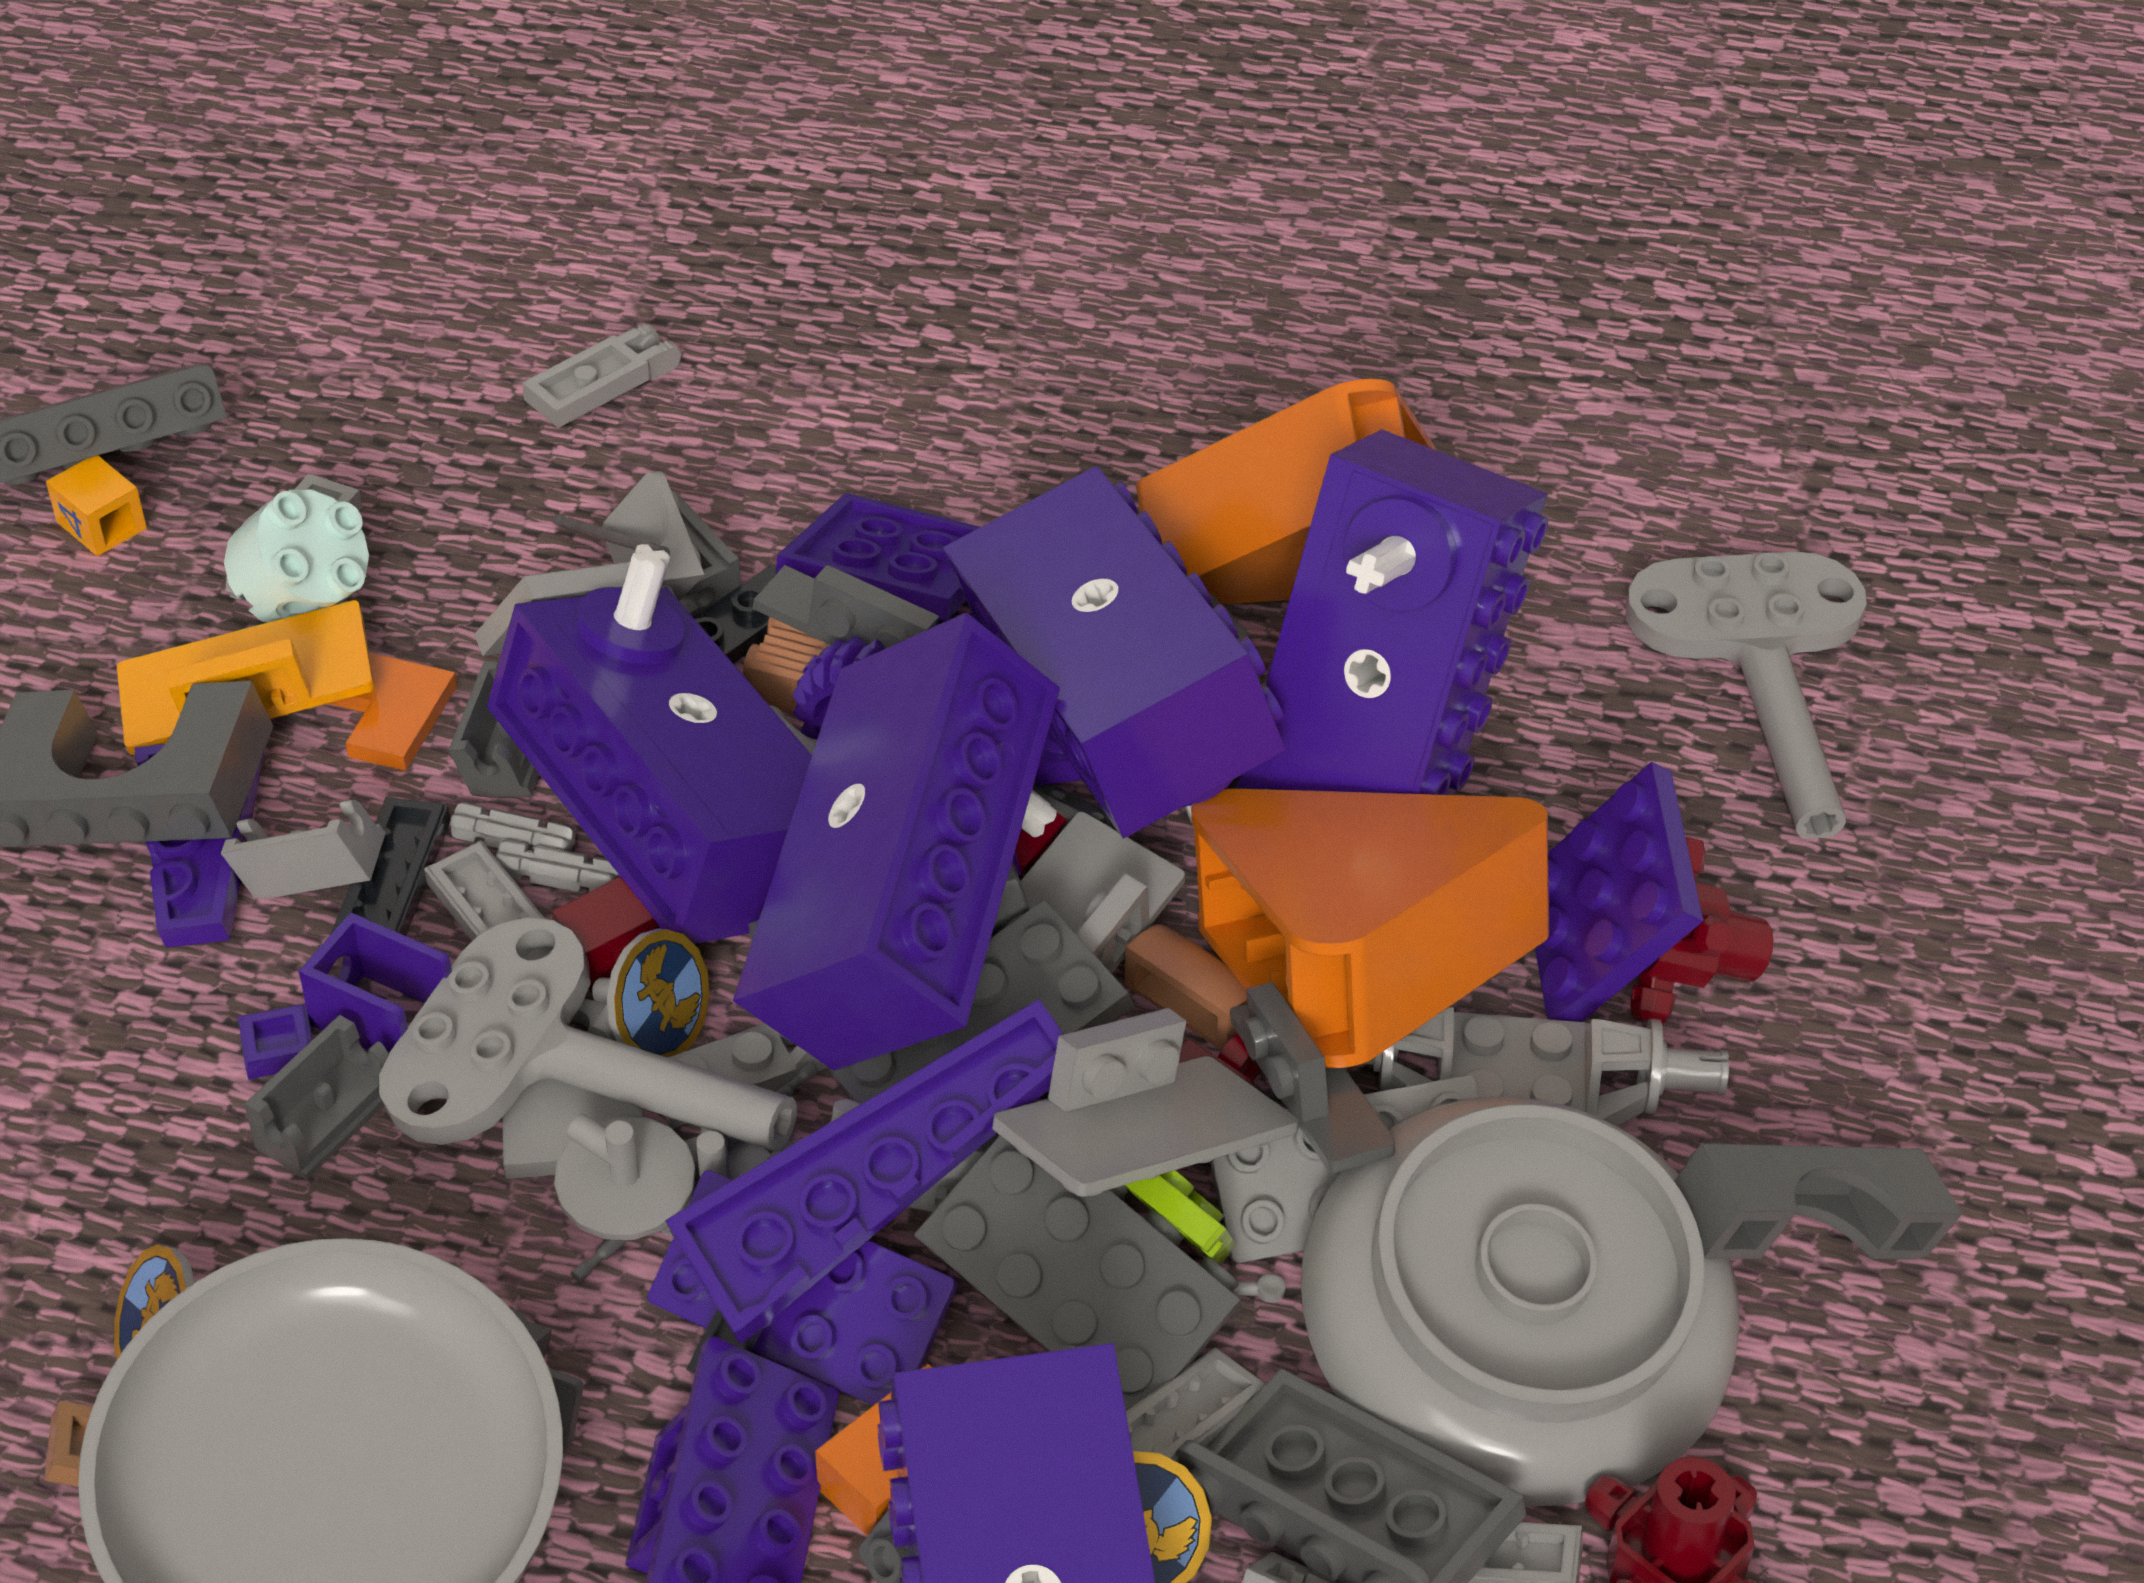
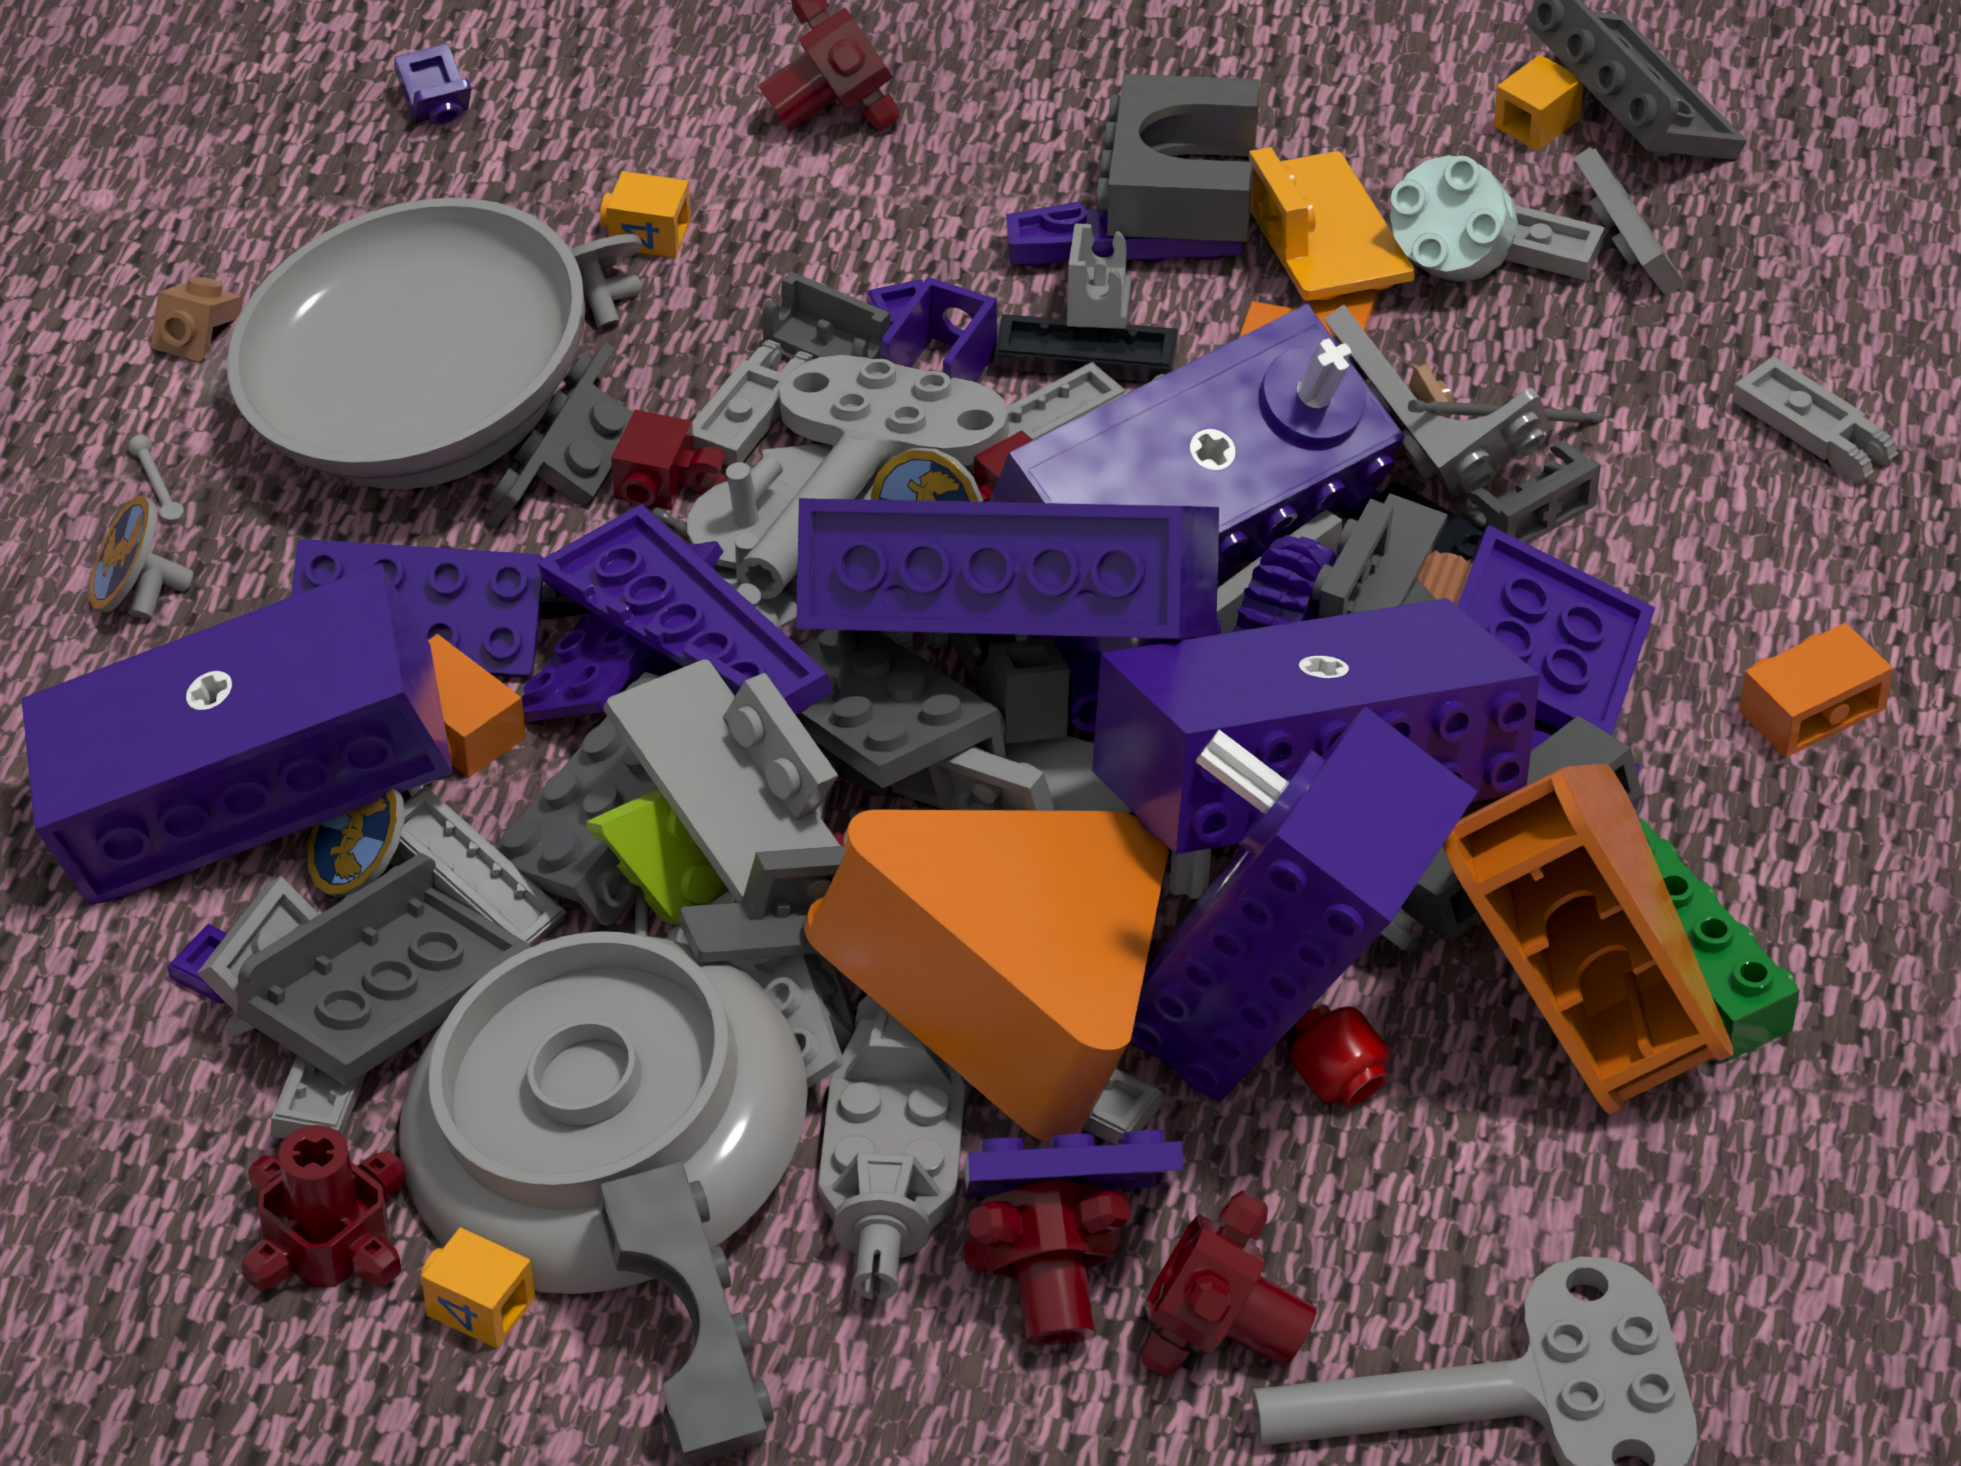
camera: 90 degrees right, 0 degrees up
(61, 1269) = (649, 208): none -> light orange brick
(275, 464) = (1616, 208): none -> light grey plate
(422, 1178) = (745, 404): none -> light grey hinge
(519, 1252) = (660, 458): none -> dark red brick
(962, 404) = (1815, 689): none -> orange brick
(1732, 815) = (1216, 1291): none -> dark red piece
(1756, 1407) = (477, 1287): none -> light orange brick

